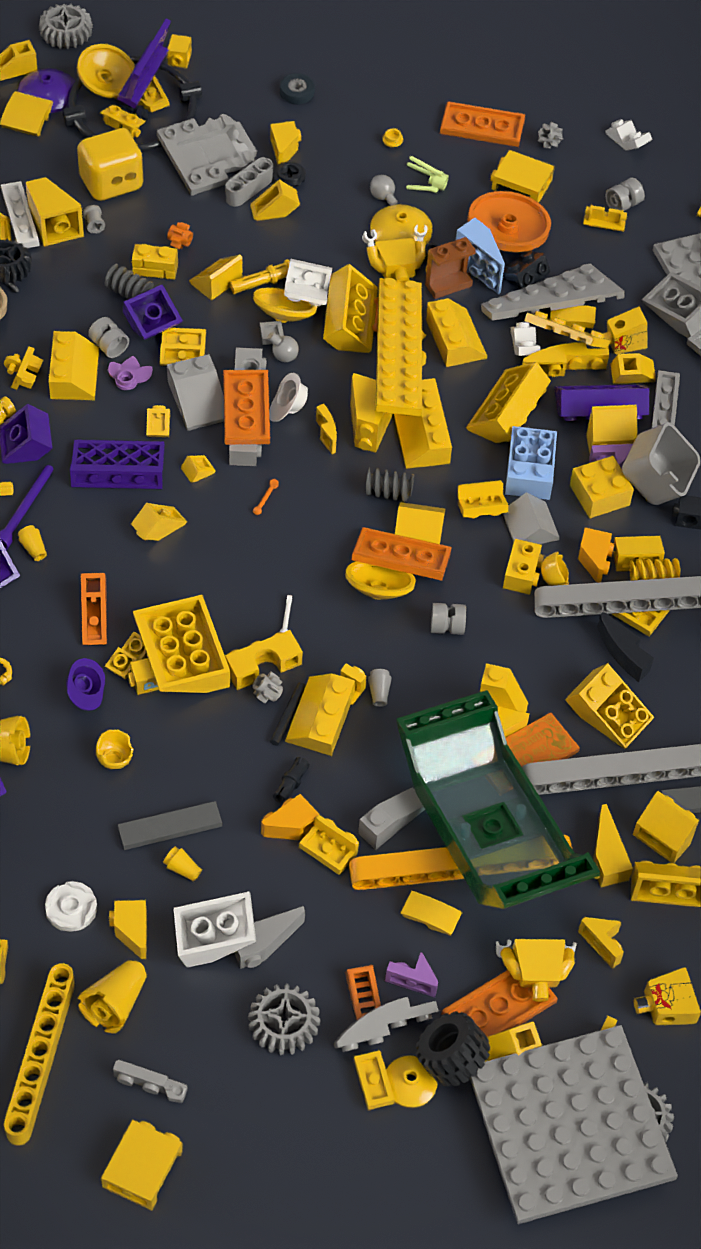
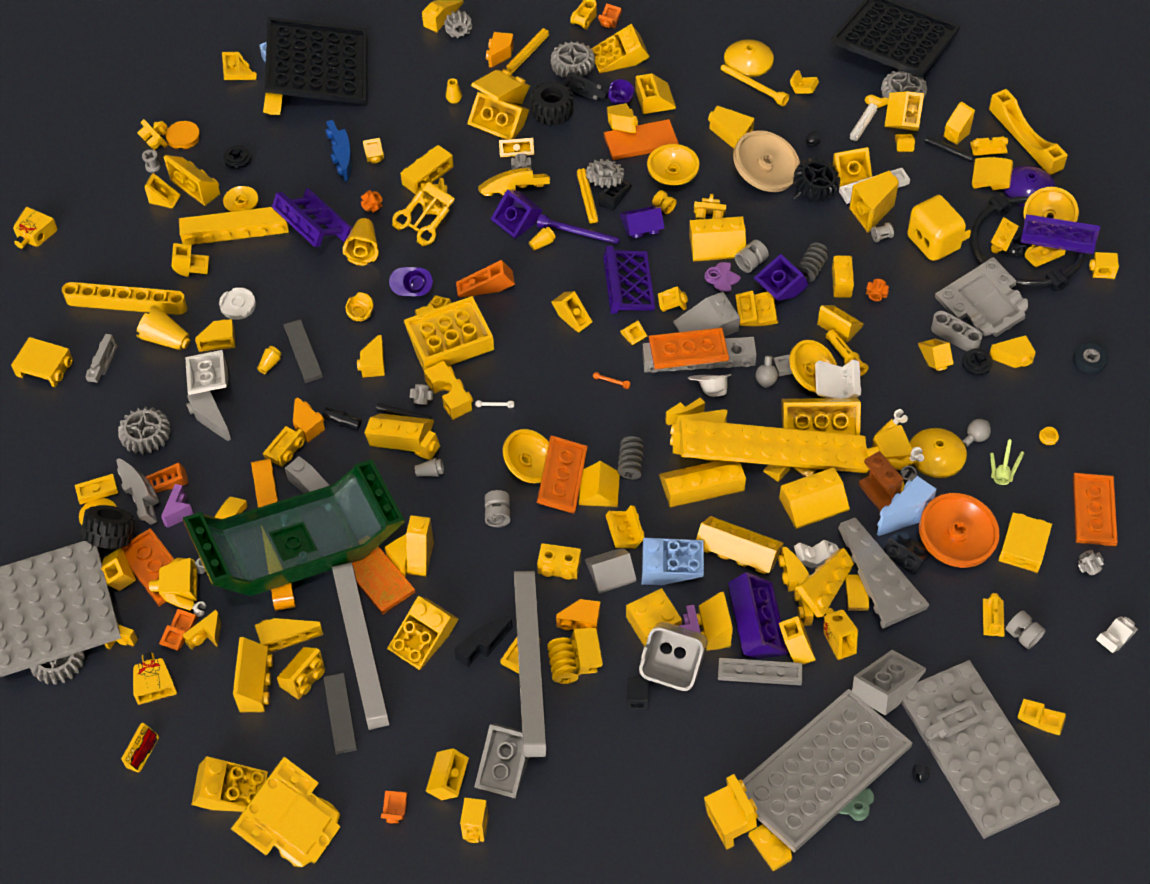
camera: 90 degrees right, 0 degrees up
(65, 26) = (1107, 183): light grey gear -> none
(199, 739) = (372, 359): none -> yellow slope
(554, 570) = (555, 585): yellow hair -> none
(597, 975) = (173, 634): none -> orange slope

